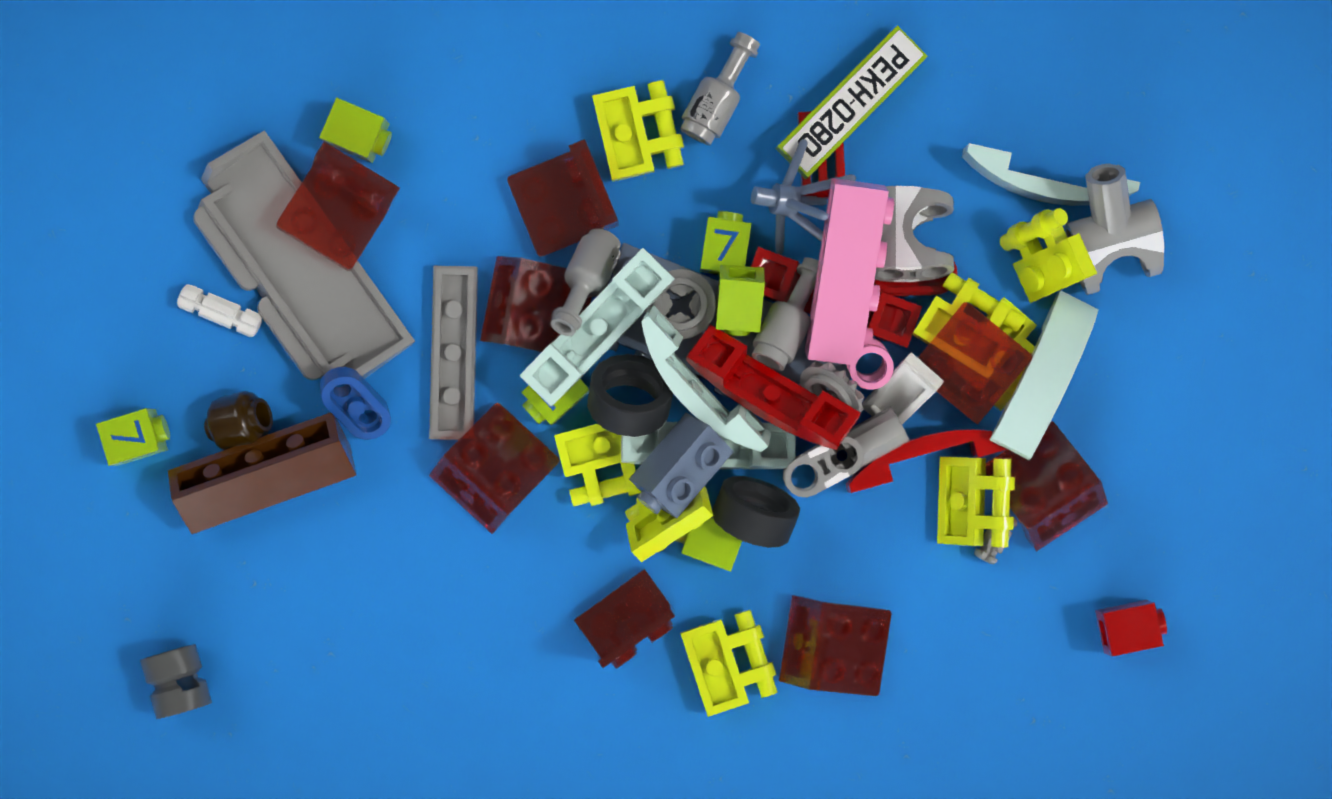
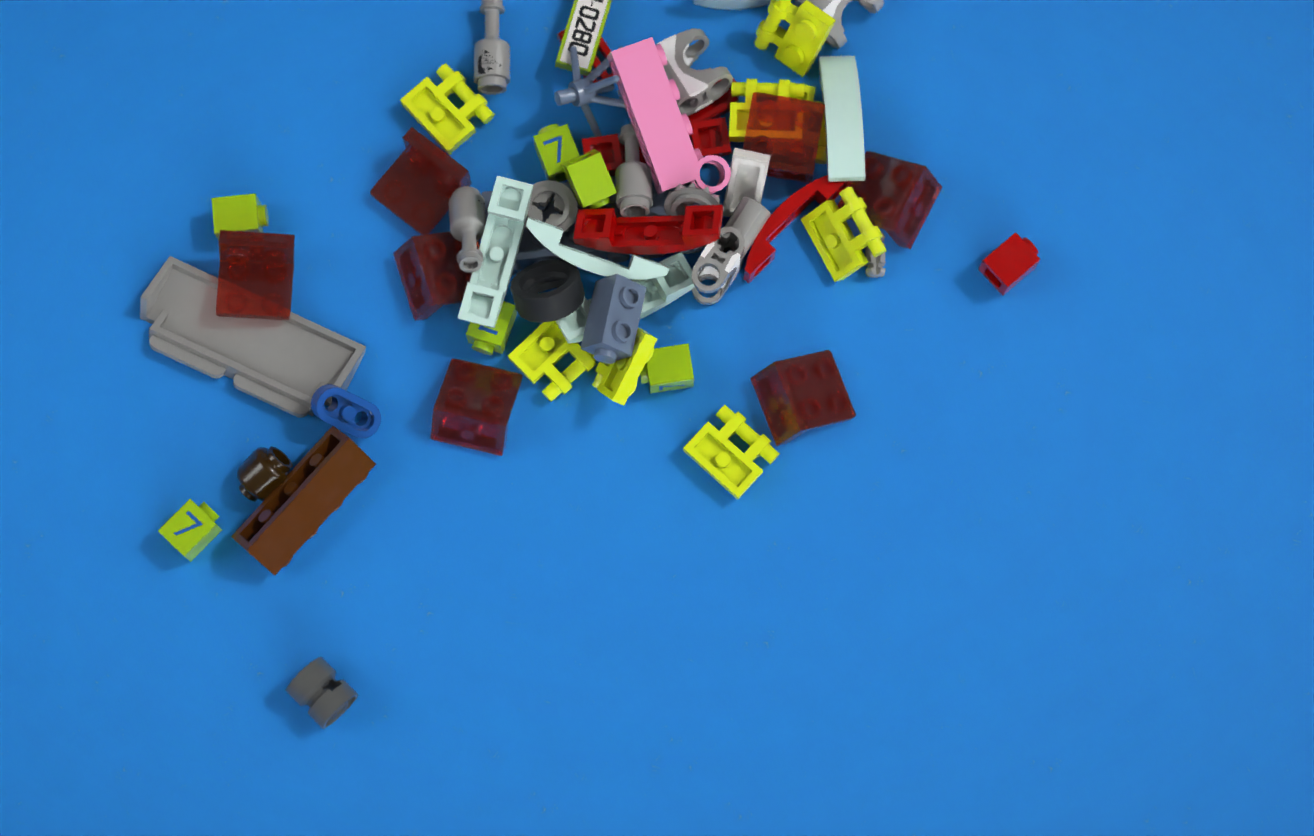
camera: 30 degrees left, 10 degrees down
(219, 310) = (206, 403): white axle -> none
(453, 351) = (398, 339): light grey tile -> none
(626, 618) = (635, 459): clear red bracket -> none
(755, 511) = (687, 325): black tyre -> none

